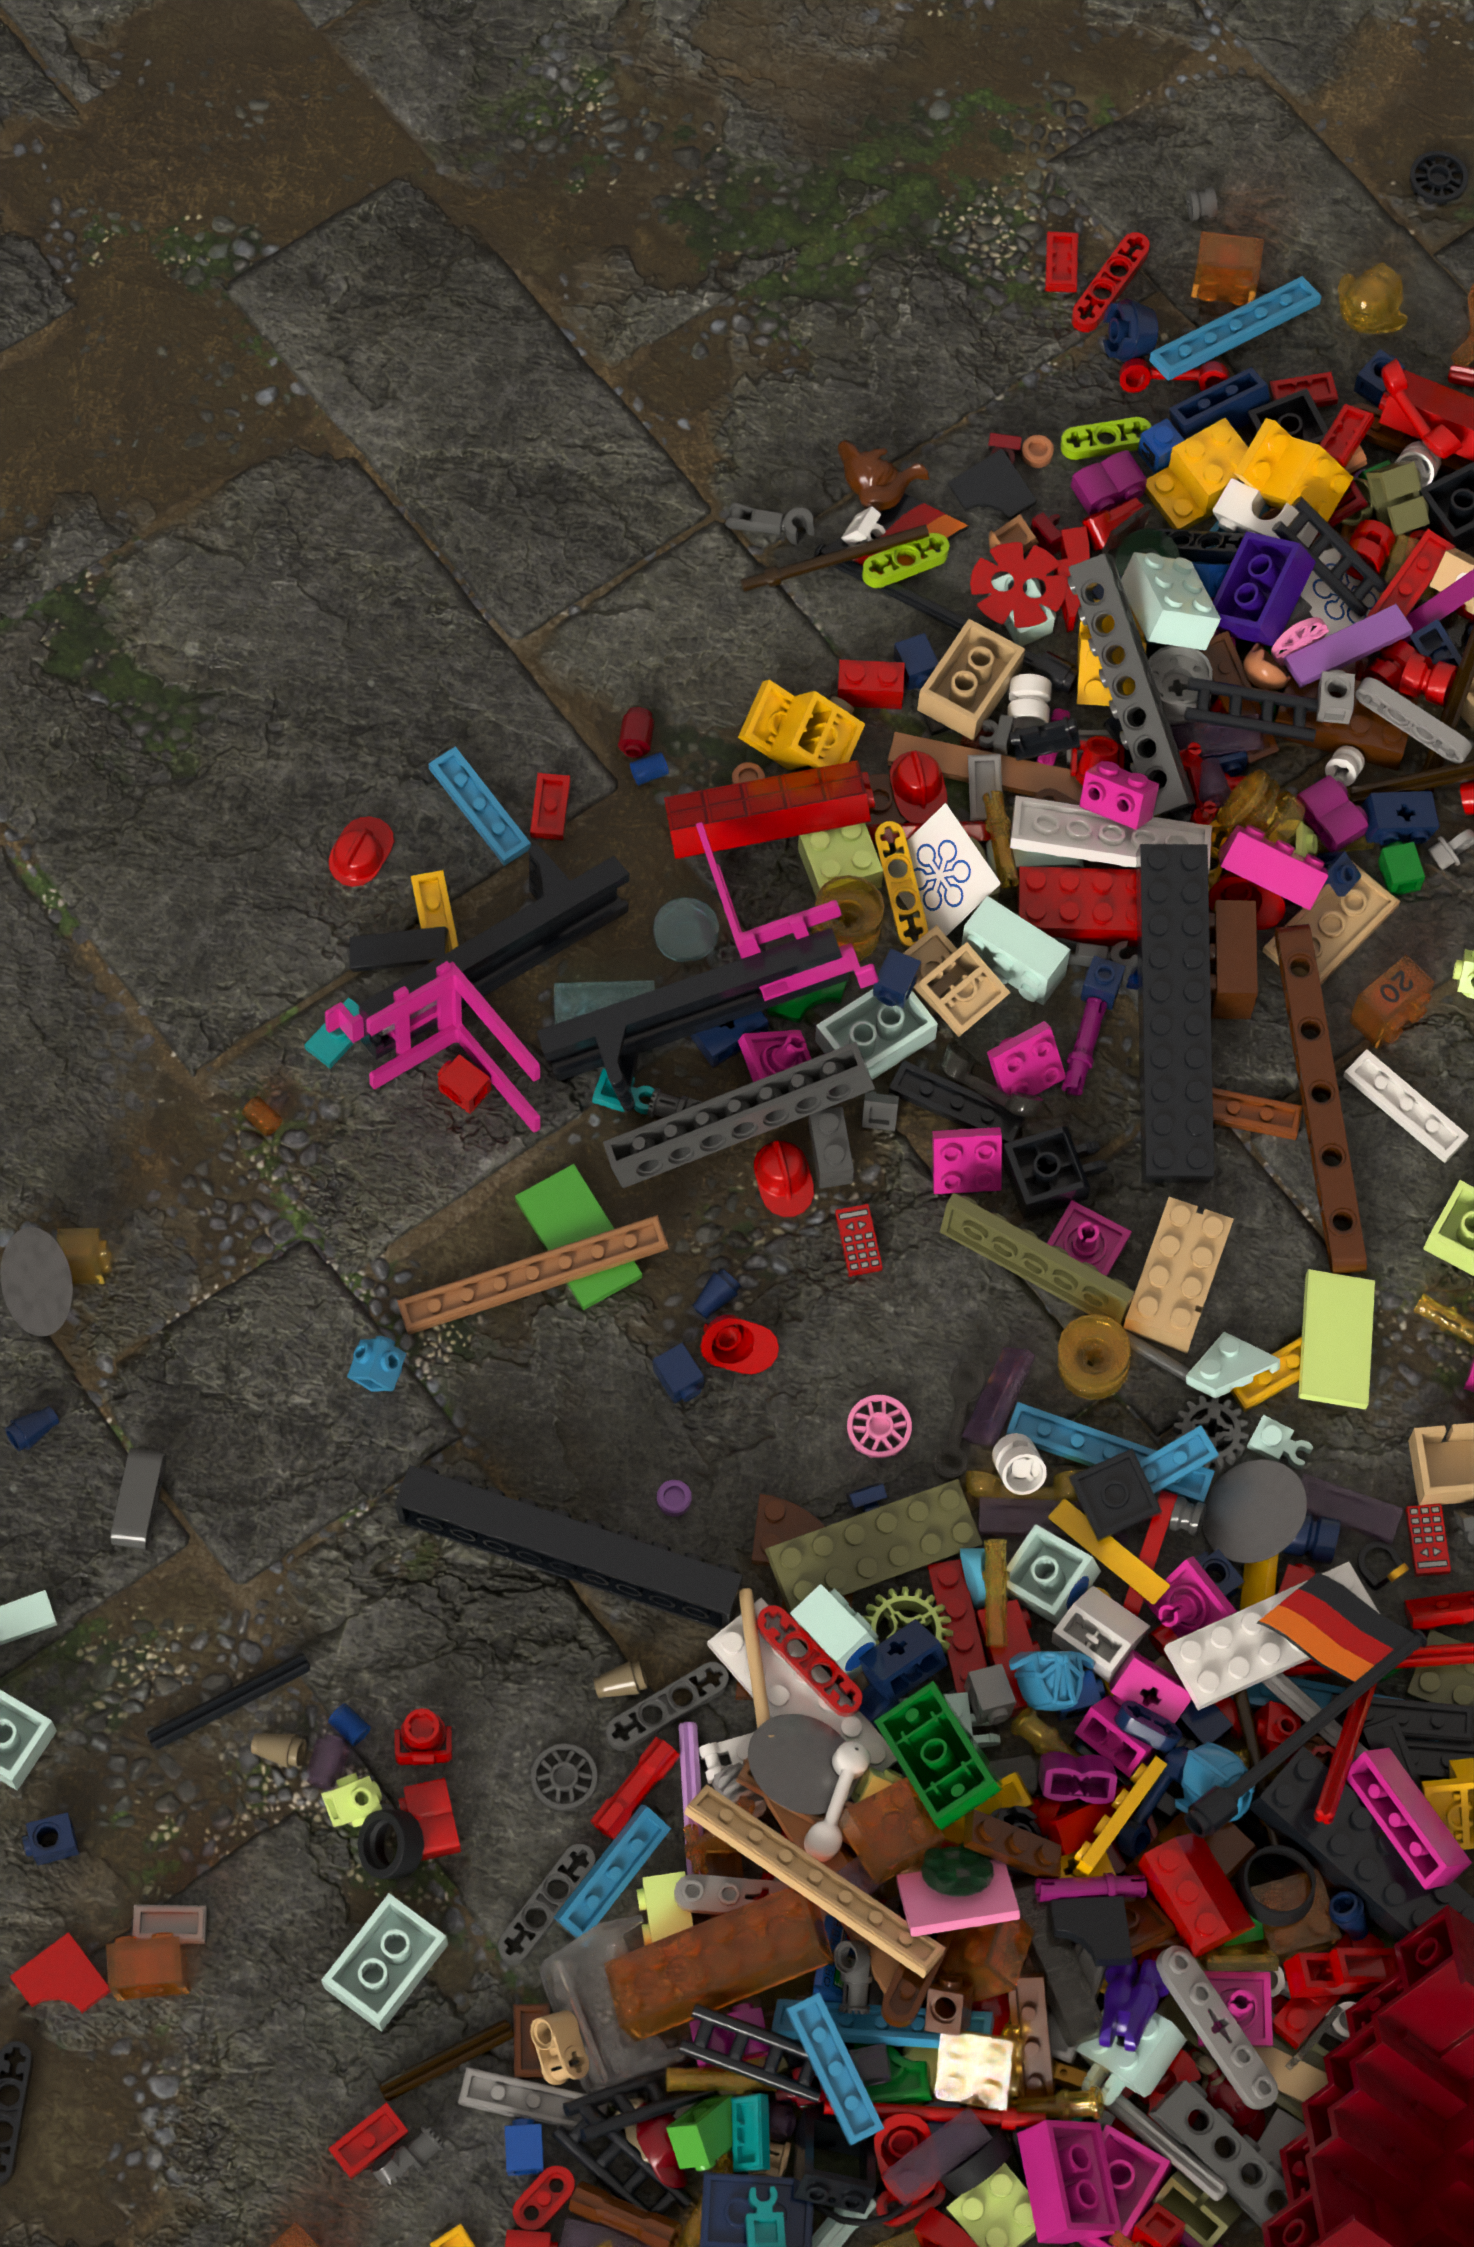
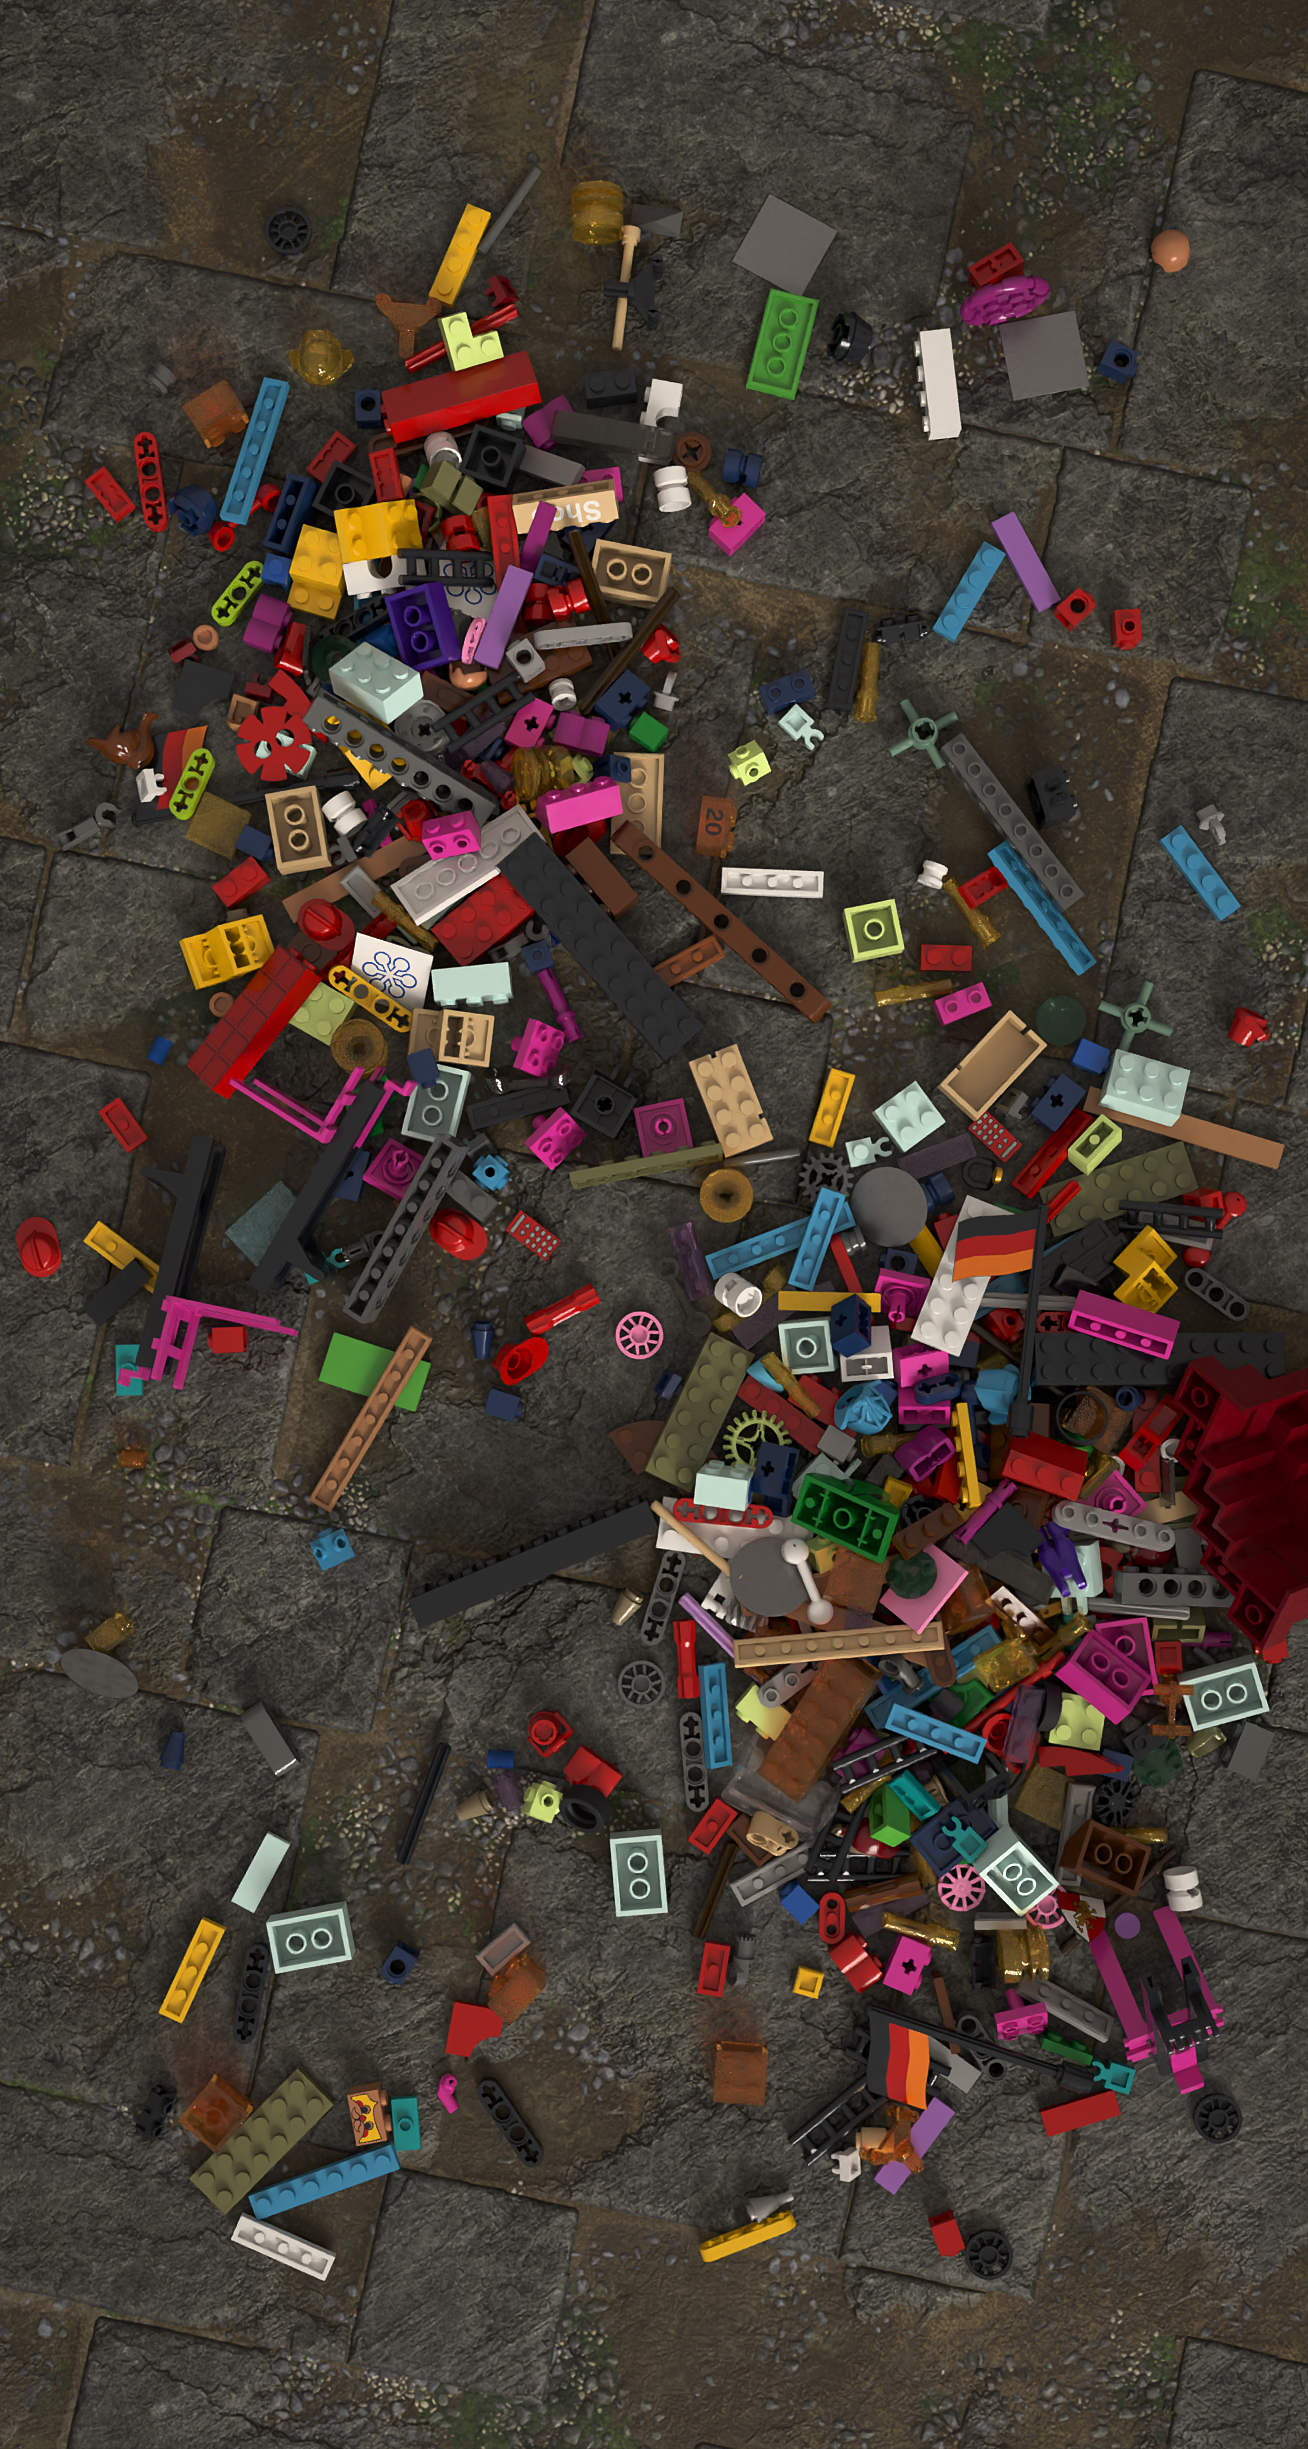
camera: 40 degrees left, 20 degrees up
(479, 806) = (82, 1160): dark azure plate -> none
(505, 1987) = (712, 1825): none -> red plate
(636, 732) = (132, 1034): dark red brick -> none
(674, 1498) = (562, 1476): medium lavender tile -> none
(686, 929) = (269, 1133): clear light blue tile -> none
(773, 576) = (123, 860): dark brown bar -> none
(847, 1339) = (562, 1310): none -> red axle
(871, 1141) = (500, 1177): none -> dark azure brick
(895, 615) = (218, 825): none -> clear yellow tile
(940, 2017) = (967, 1647): reddish brown brick -> none
(1111, 1583) = (850, 1325): none -> dark blue brick
(1115, 1495) = (807, 1268): black tile -> none
(1229, 1365) = (803, 1131): light aqua wing -> none
(1292, 765) = (538, 712): none -> dark pink brick
(1336, 1339) = (850, 1062): yellowish green tile -> none
(1343, 1758) = (1064, 1324): red axle -> none
(1352, 1442) = (908, 1117): none -> light aqua brick
(1438, 440) = (443, 429): red piece -> none

